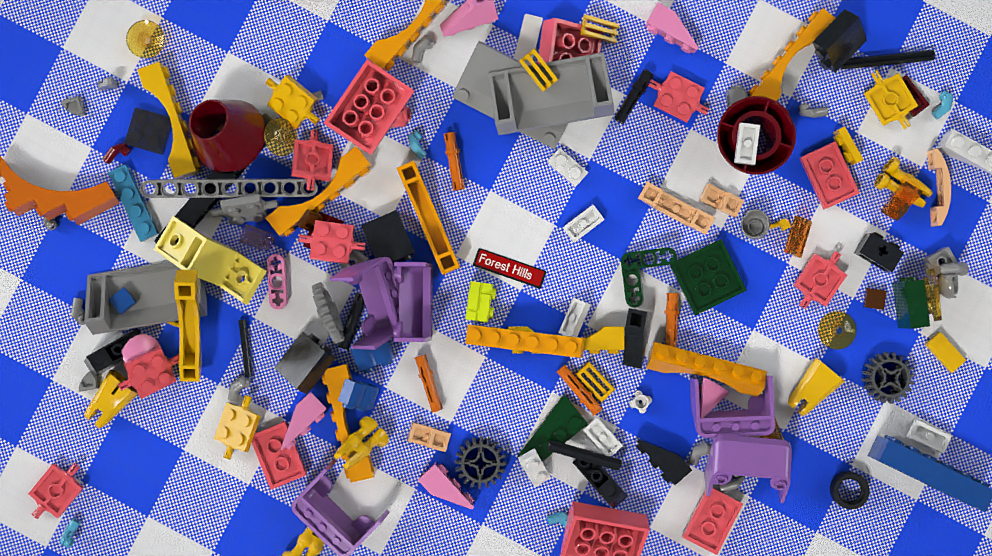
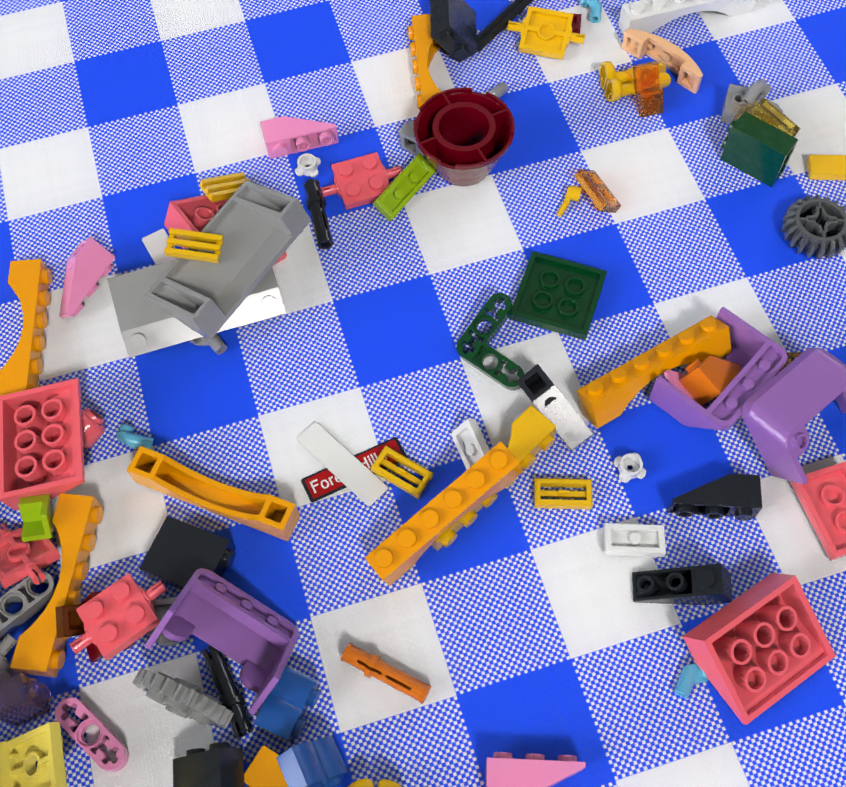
camera: 40 degrees left, 25 degrees down
(334, 148) = (37, 517): none -> lime panel
(415, 302) = (274, 587): medium lavender windscreen -> none
(419, 47) = (53, 351): light grey arm -> none
(428, 436) = (447, 737): light nougat slope -> none
(454, 162) = (182, 413): orange pin -> none
(479, 301) = (354, 526): neon yellow brick -> none
(489, 462) = (546, 714): dark grey gear -> none
(506, 259) = (342, 464): none -> white sticker
(533, 309) = (422, 484): none -> yellow tile
(534, 467) = (601, 644): white plate -> none
(560, 425) = (578, 581): dark green wing -> none
(567, 167) = (317, 325): white plate -> none
(583, 223) = (386, 357): white plate -> none
(584, 455) = (636, 574): black axle -> none
(593, 405) = (557, 515): orange pin -> none
(659, 50) = (307, 165): none -> white plate
(671, 319) = (562, 355): orange pin -> none
(676, 208) = (463, 267): light nougat slope -> none
(693, 126) = (404, 187): none -> lime tile
(698, 451) = (742, 455): light grey arm -> none
(721, 200) = (498, 225): light nougat slope -> none
(725, 402) = (708, 377): none -> orange slope
(732, 484) = (811, 456): light grey arm -> none
(747, 144) = (463, 134): white plate -> none
(755, 224) = (548, 211): light grey hair -> none
(814, 387) = (768, 291): yellow piece -> none
(820, 280) = (659, 207): coral plate -> none
(828, 326) = (725, 243): clear yellow dish -> none
(829, 175) = (565, 125): coral plate -> none
(850, 150) = (553, 91): yellow plate -> none
(868, 251) = (680, 142): black brick -> none
(874, 298) = (723, 181): reddish brown tile -> none

